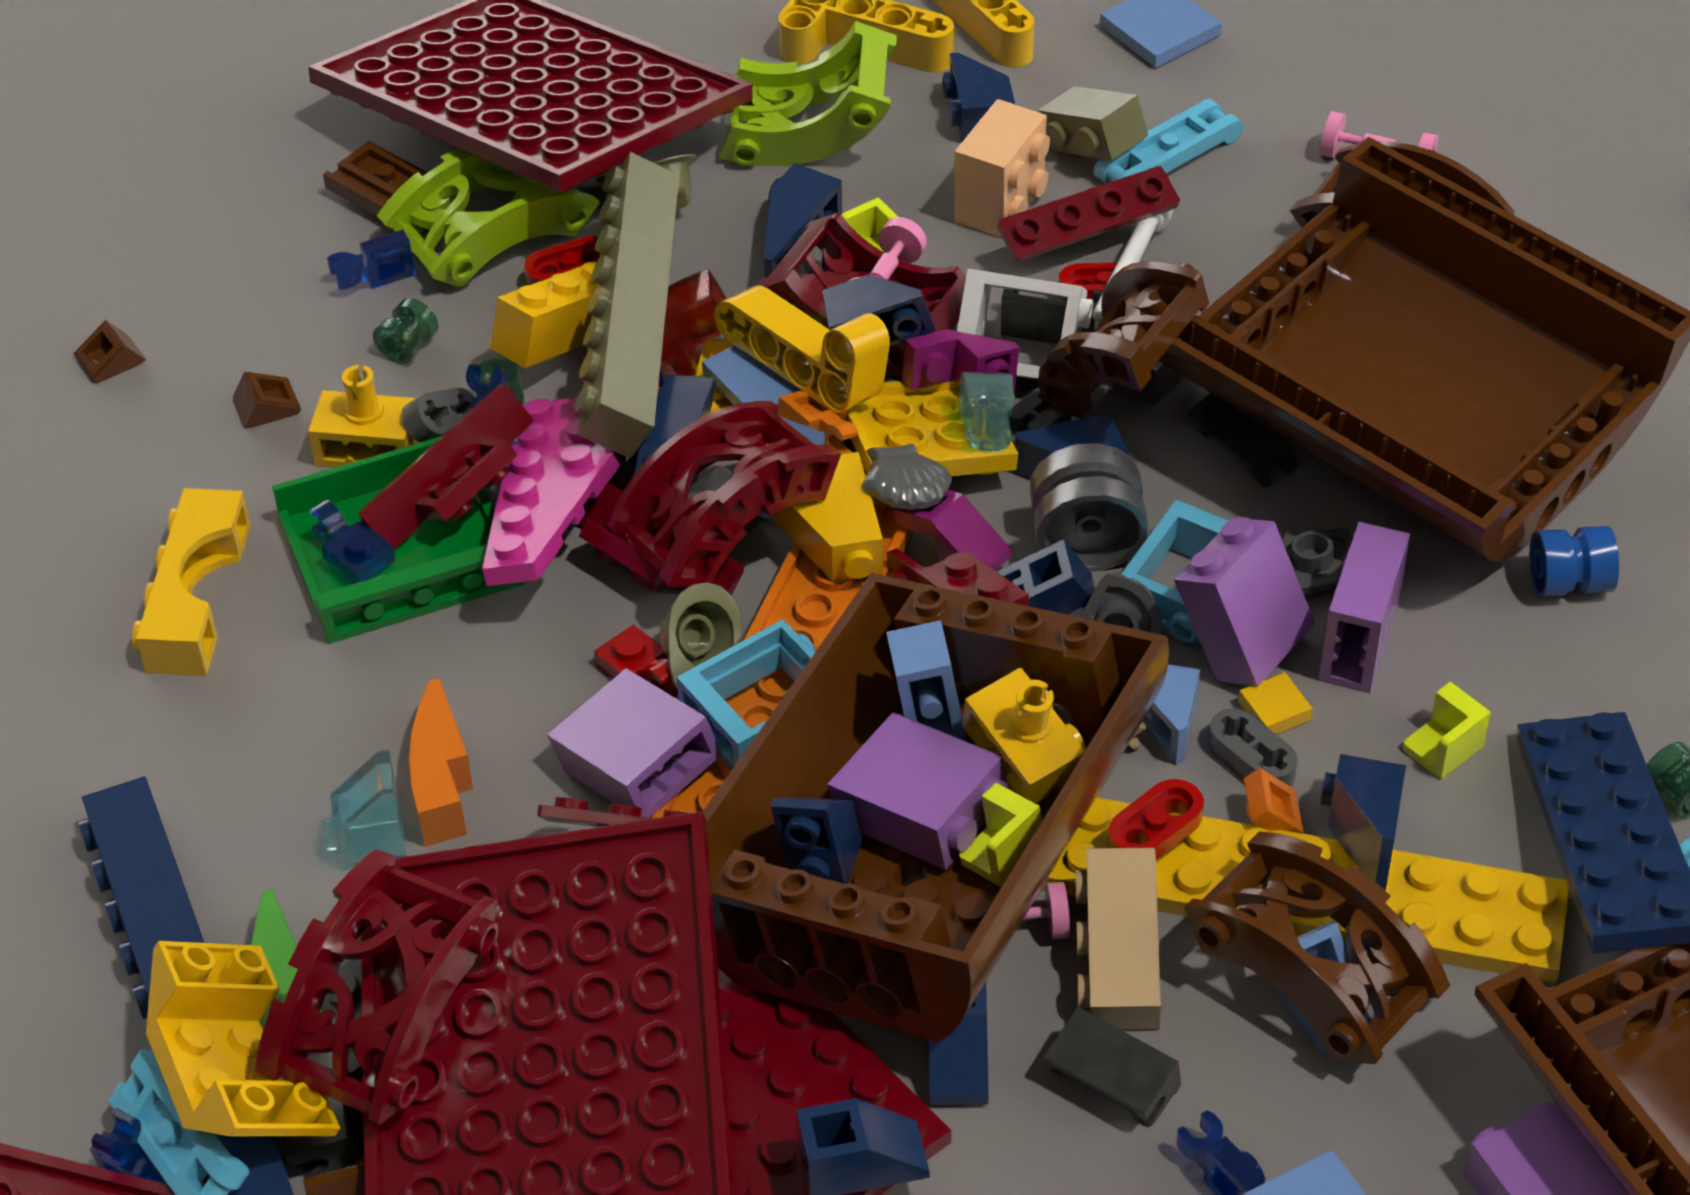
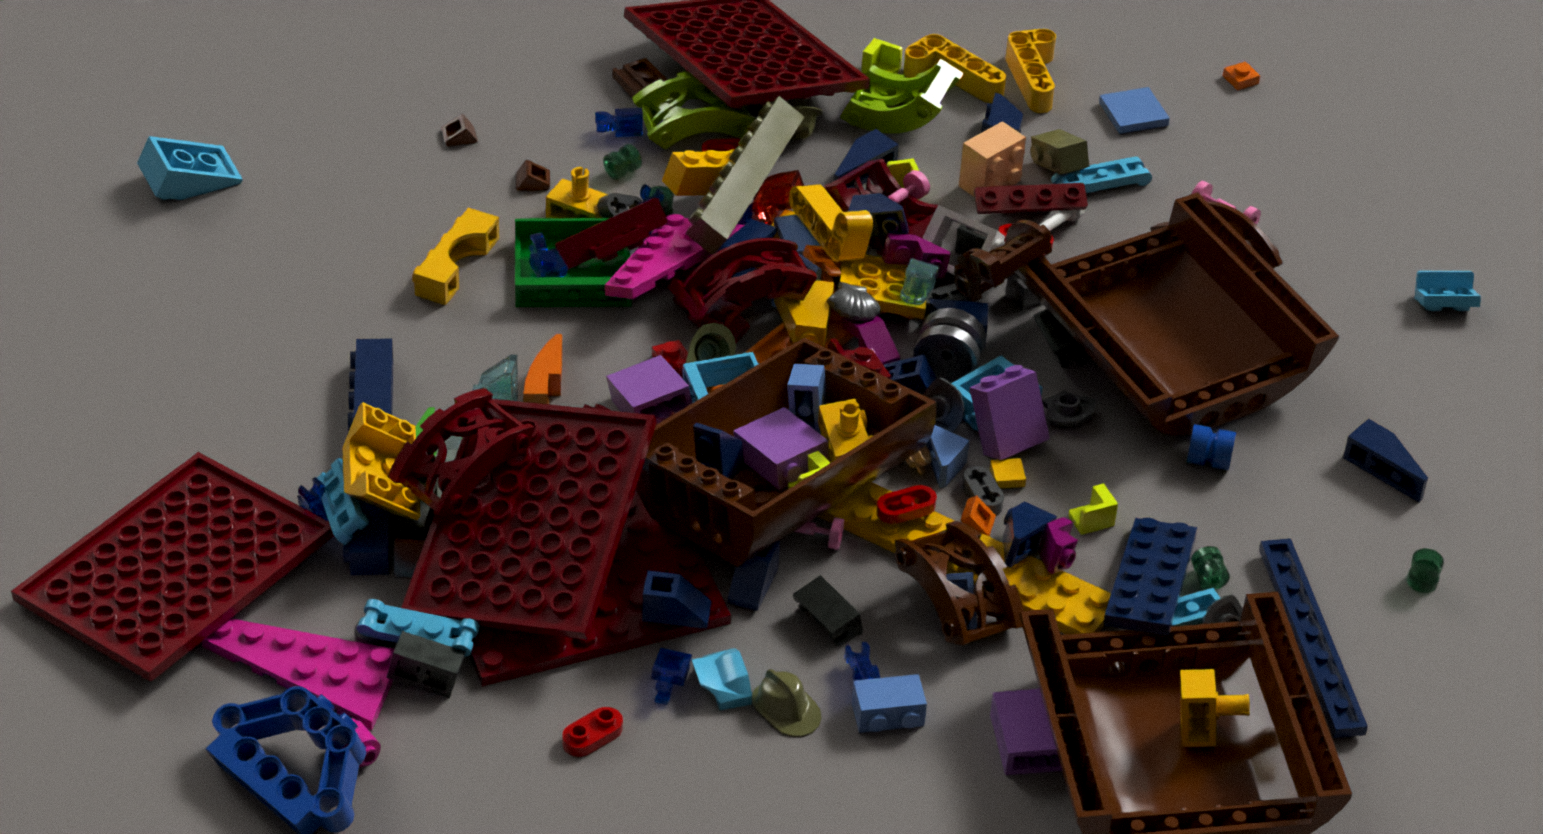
camera: 15 degrees right, 5 degrees down
(742, 37) = (882, 55): none -> neon yellow panel
(1120, 937) = (861, 552): tan brick -> none
(1364, 607) = (1076, 435): medium lavender brick -> none
(1433, 823) = (1058, 546): none -> magenta slope

